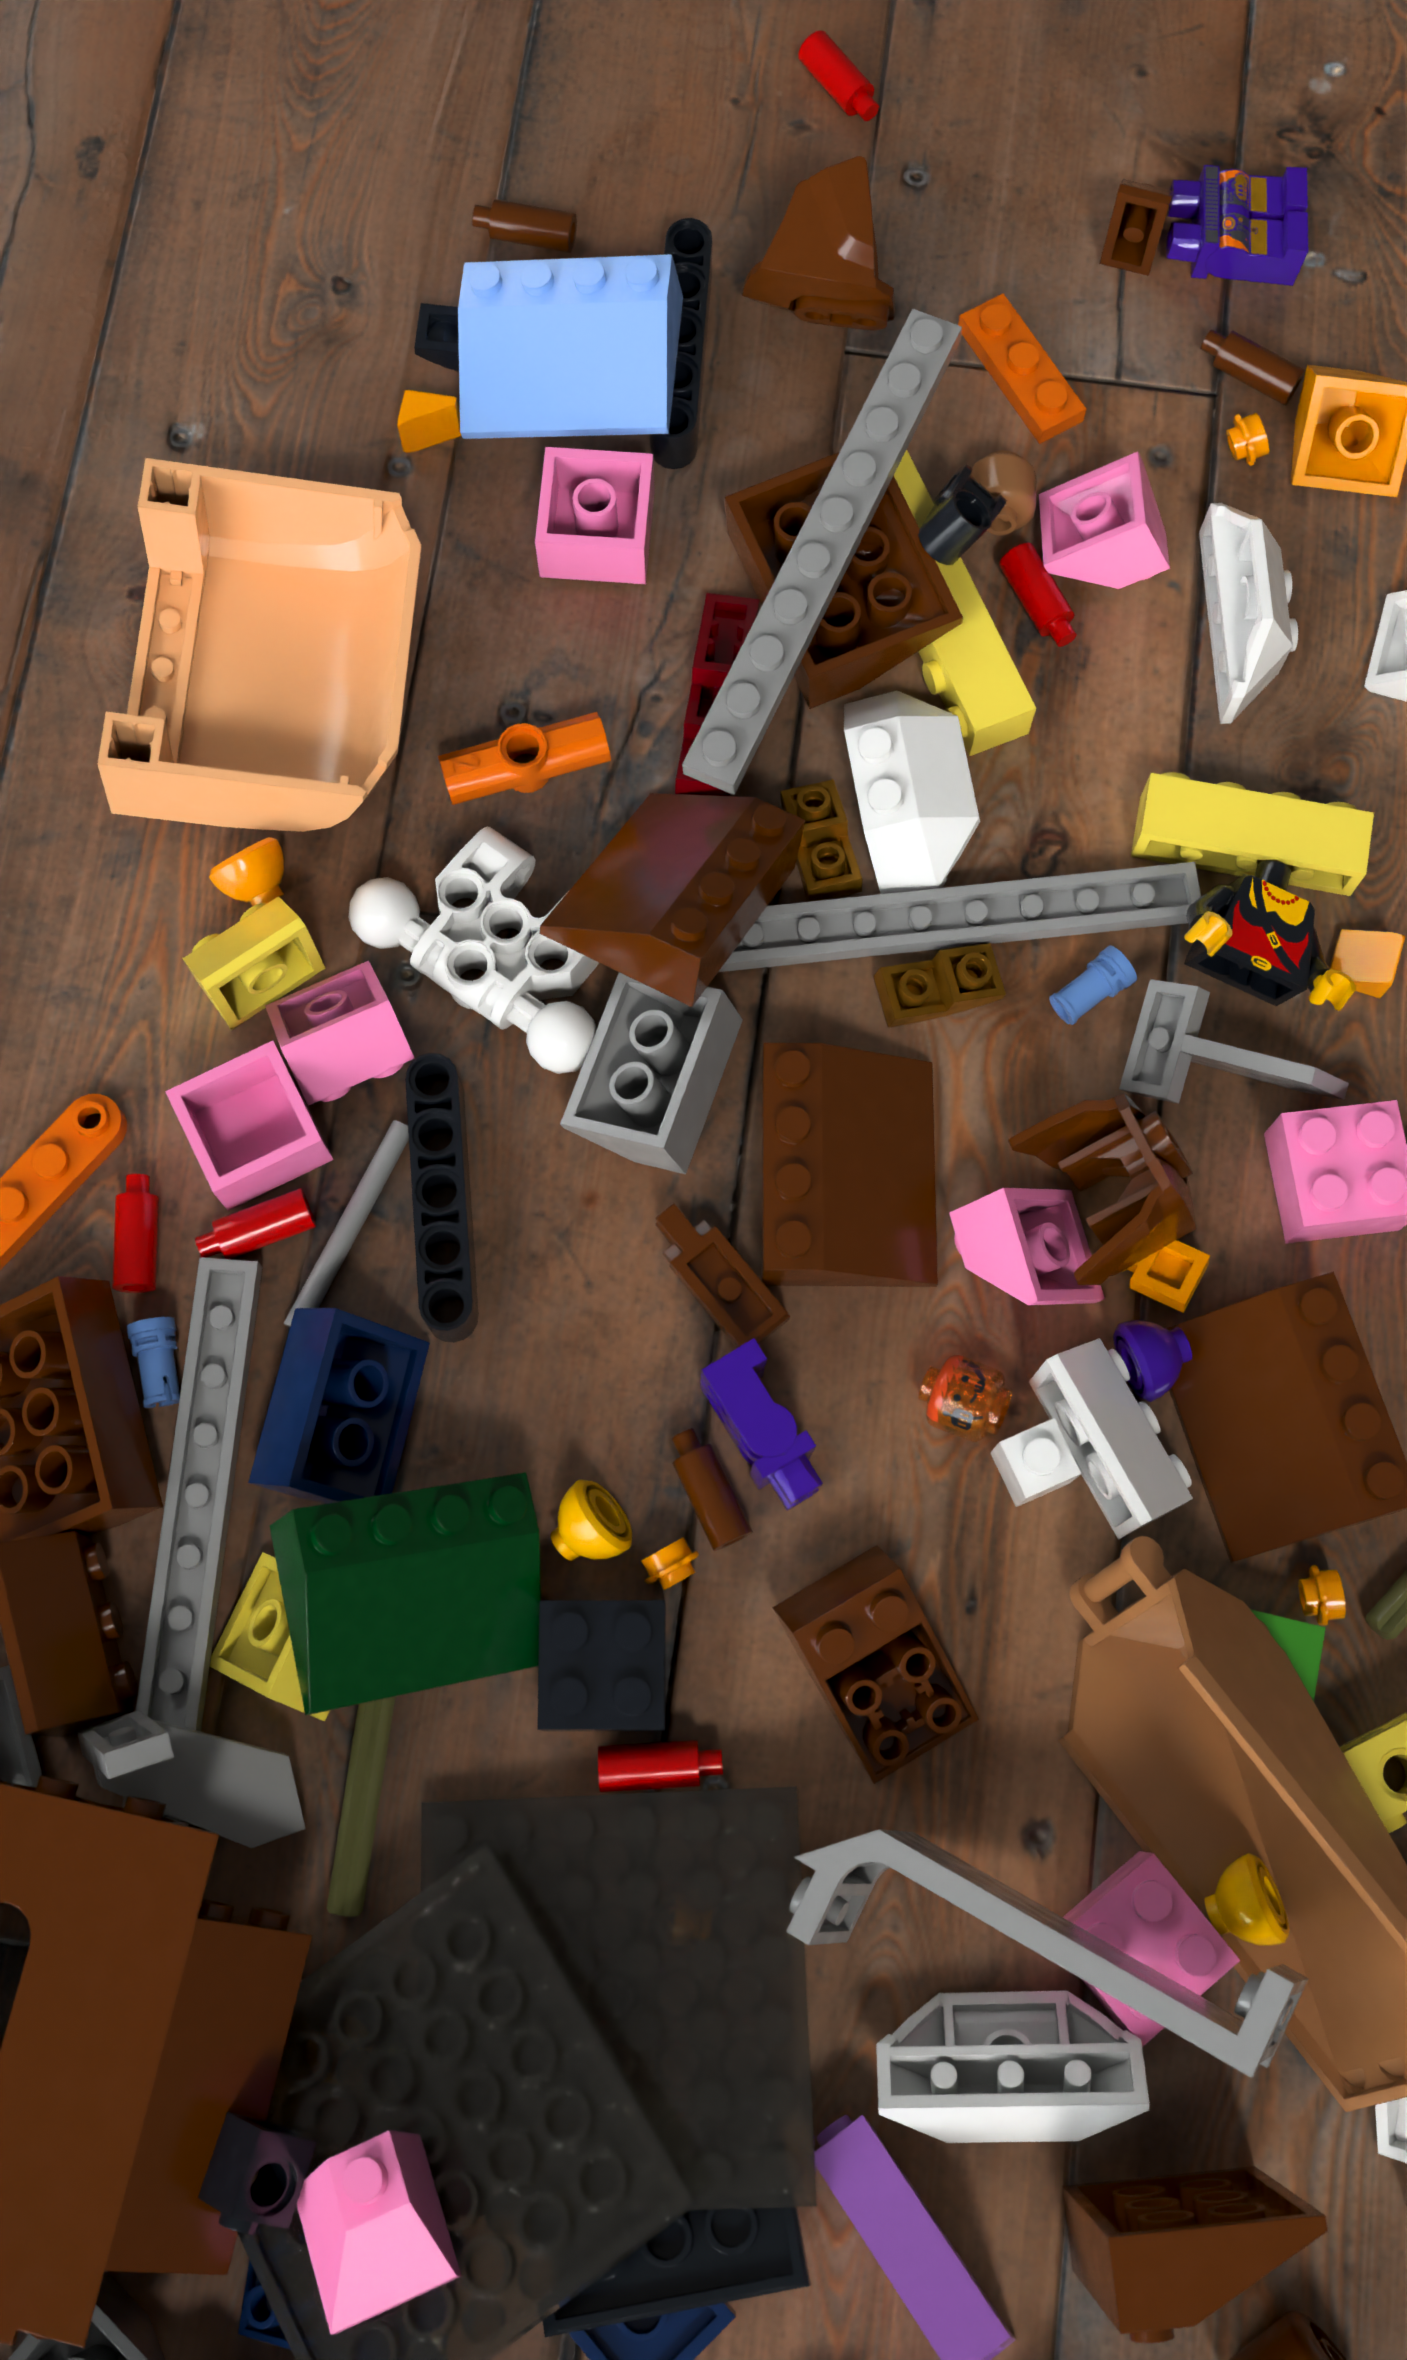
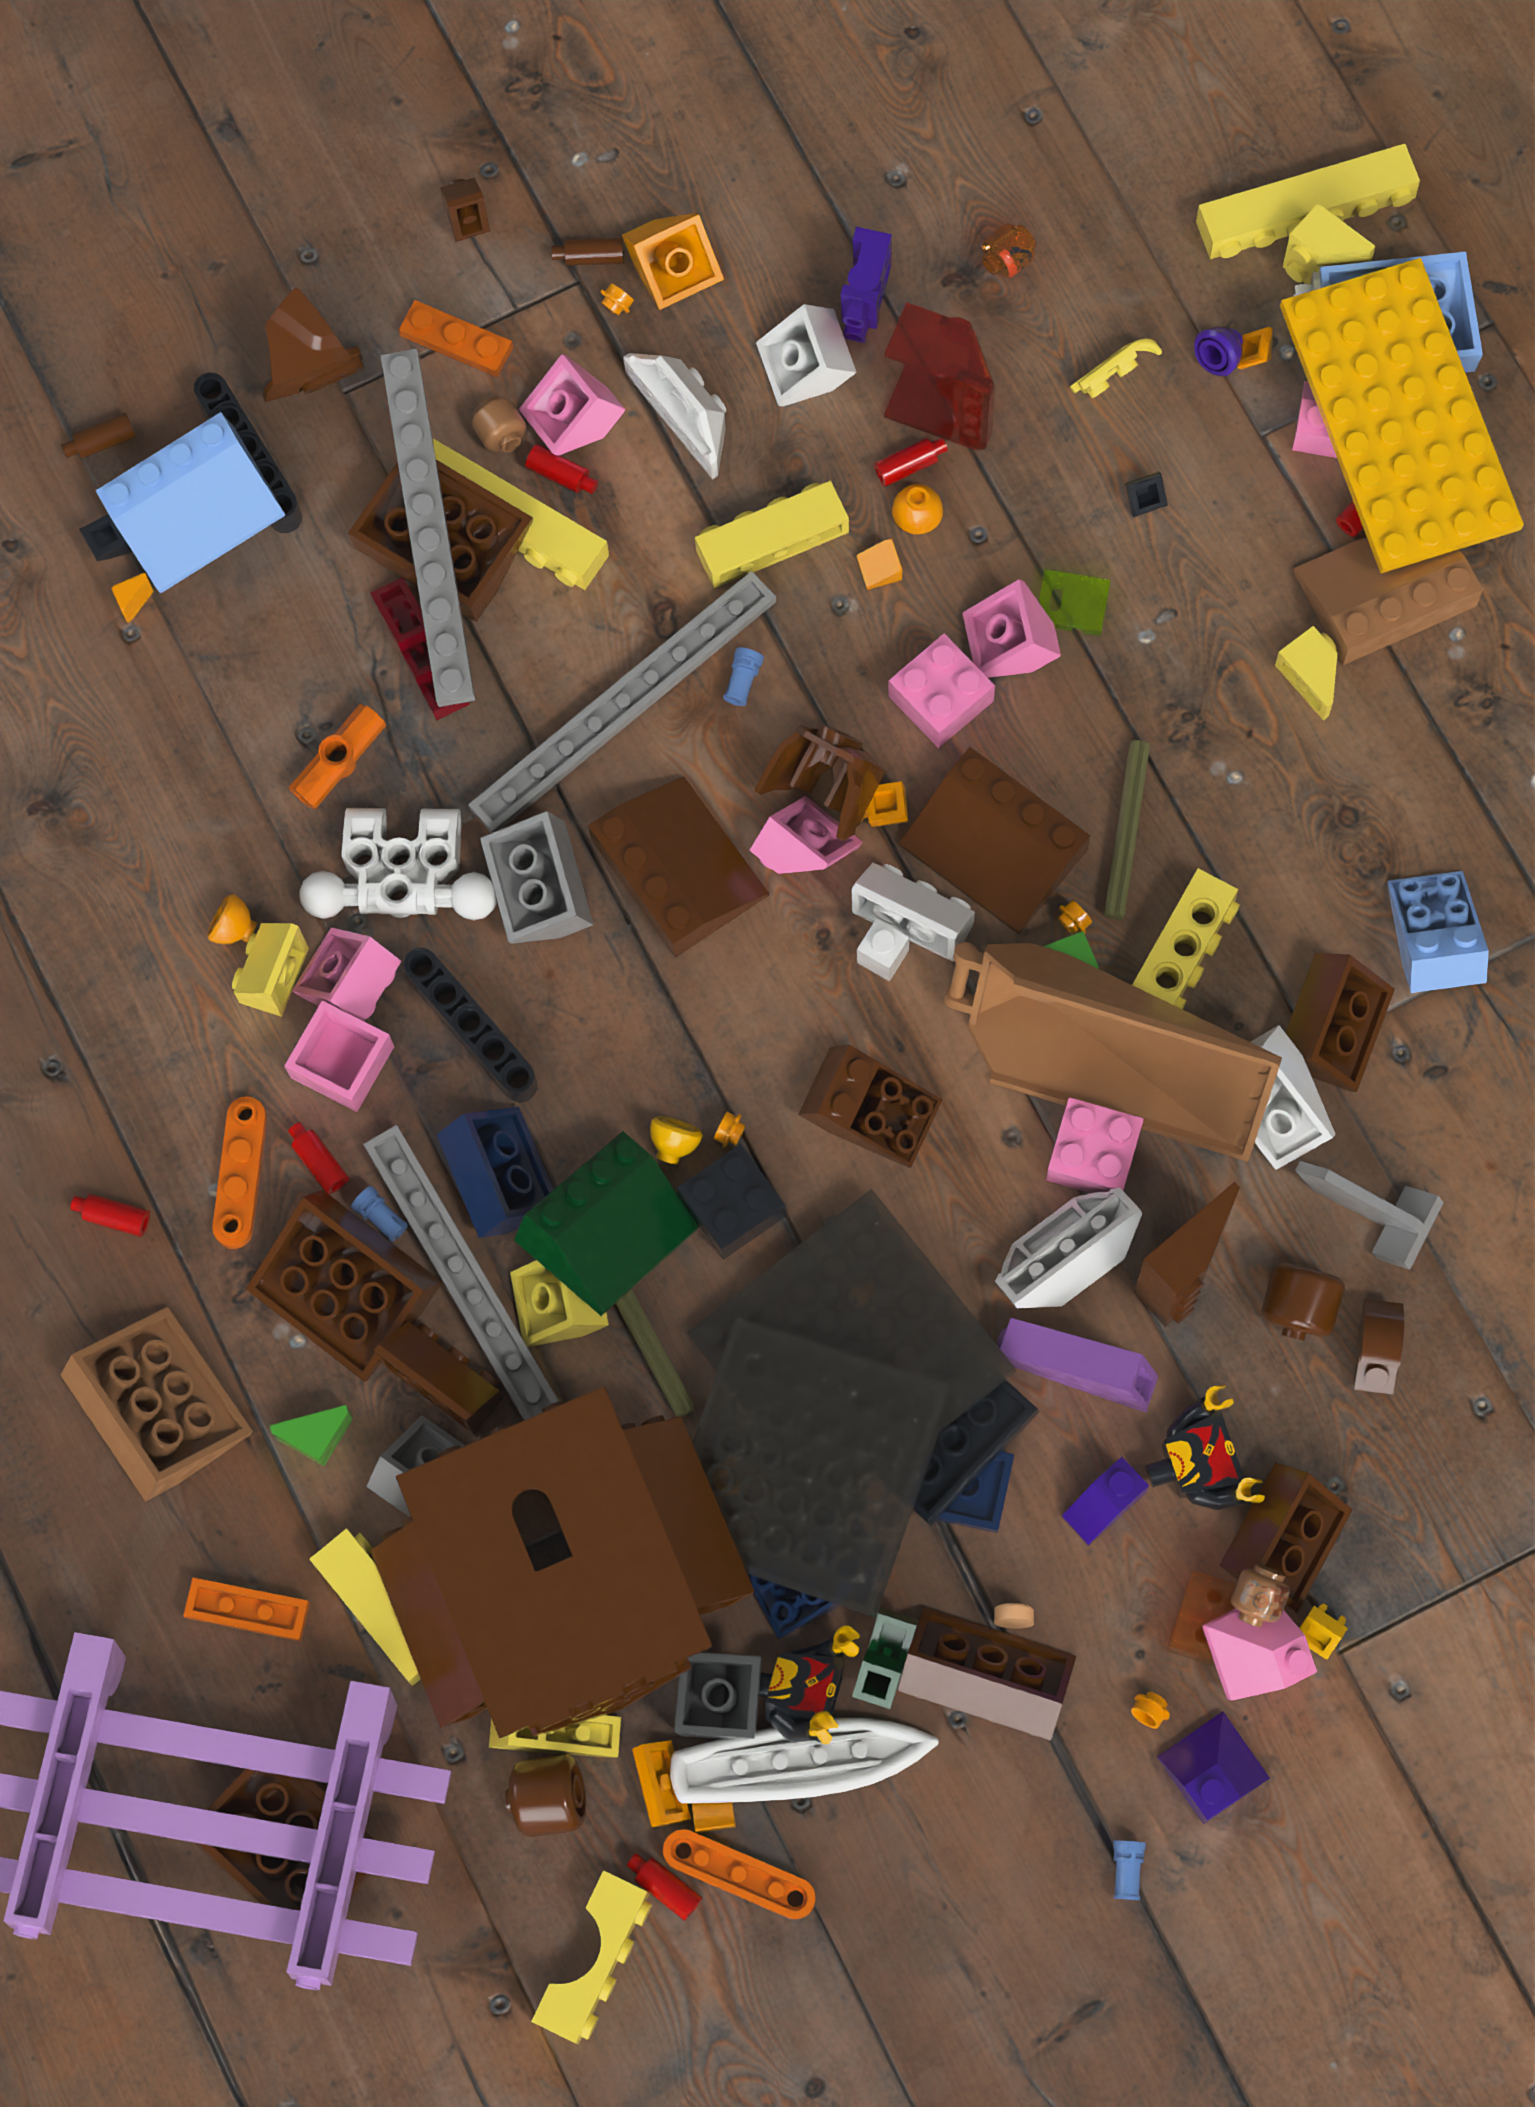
camera: 30 degrees left, 0 degrees up
(201, 1777) = (560, 1383): light grey piece -> none
(242, 2150) = (735, 1529): black brick -> none
(258, 1226) = (381, 1108): red cylinder -> none
(263, 650) = (151, 792): light nougat slope -> none
(352, 1219) = (428, 1071): light grey bar -> none
(375, 2229) = (808, 1512): bright pink slope -> none
(595, 515) = (277, 590): bright pink brick -> none
(655, 1765) = (793, 1232): red cylinder -> none
(679, 889) = (480, 771): reddish brown slope -> none
(709, 1491) = (724, 1080): reddish brown cylinder -> none
(720, 1279) = (652, 968): reddish brown hinge -> none
(759, 1427) = (728, 1026): dark purple hips -> none
(825, 851) = (536, 694): pearl gold slope -> none
(838, 75) = (219, 222): red cylinder -> none
(847, 1871) = (927, 1197): light grey panel -> none
(910, 789) = (566, 631): white wedge -> none
(939, 987) = (659, 731): pearl gold slope -> none
(959, 517) = (489, 459): black piece -> none
(965, 1398) = (824, 941): clear orange head -> none
(1151, 1356) = (906, 854): dark purple brick -> none
(1169, 1041) = (804, 681): light grey piece -> none
(1241, 225) = (525, 168): dark purple hips -> none
(1248, 1903) = (1133, 1091): yellow brick -> none
(1263, 940) = (817, 591): torso -> none

